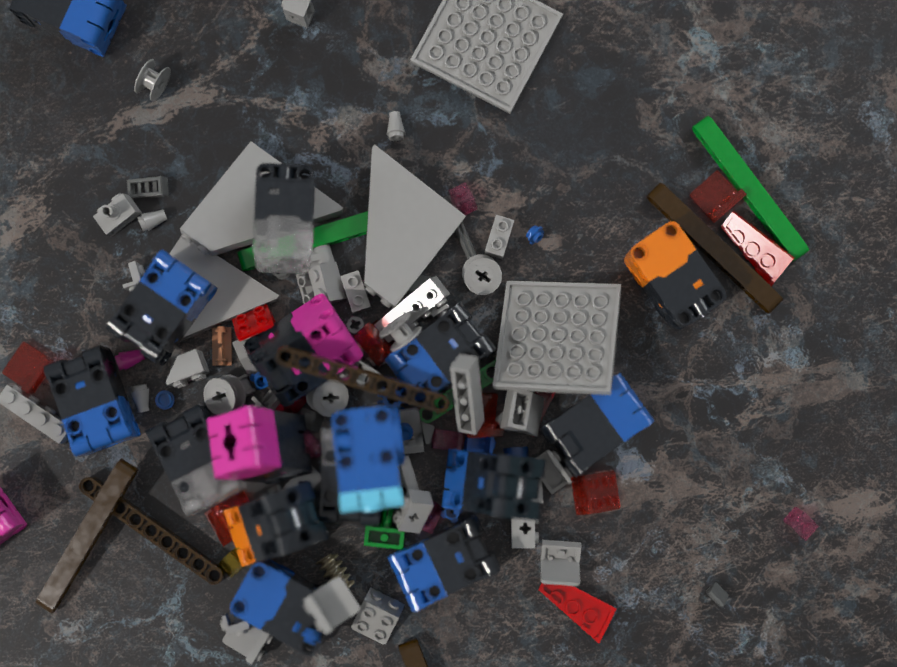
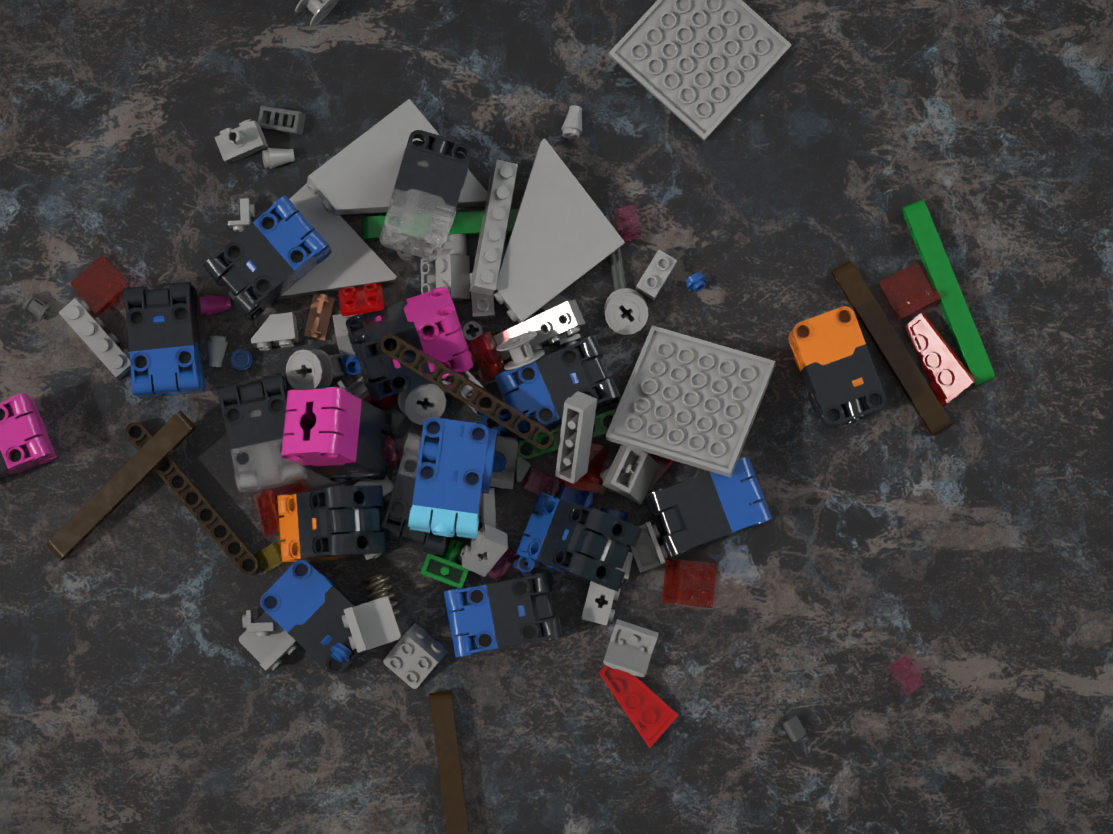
camera: 10 degrees right, 0 degrees up
(350, 232) = (493, 227): none -> light grey brick

